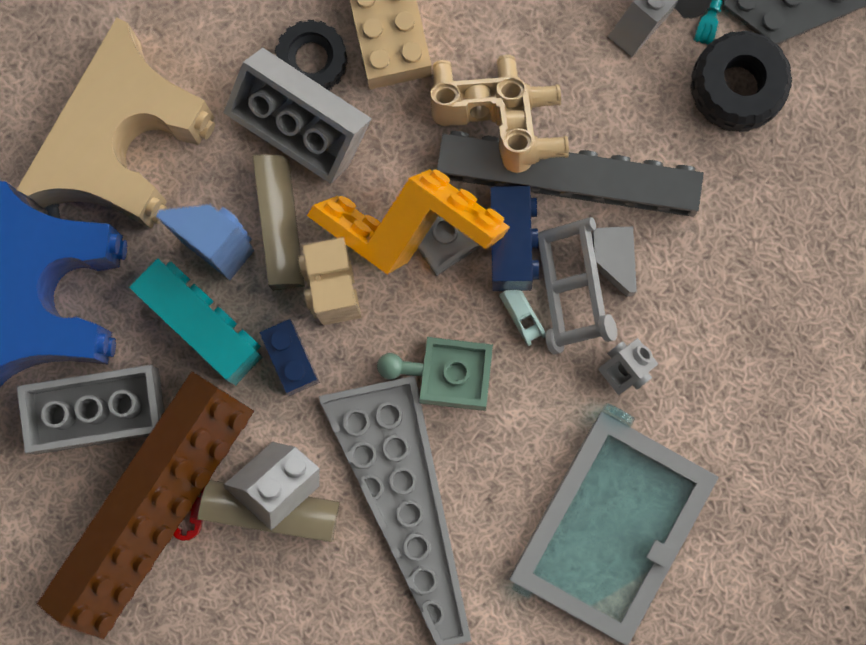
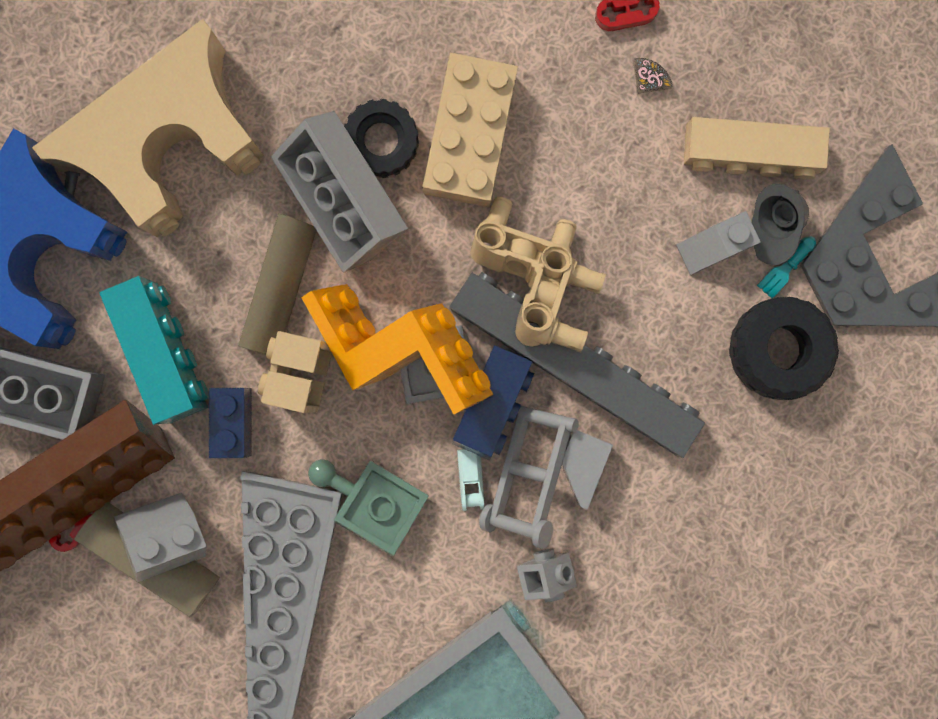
camera: 15 degrees right, 5 degrees up
(211, 235) = (194, 281): medium blue slope -> none

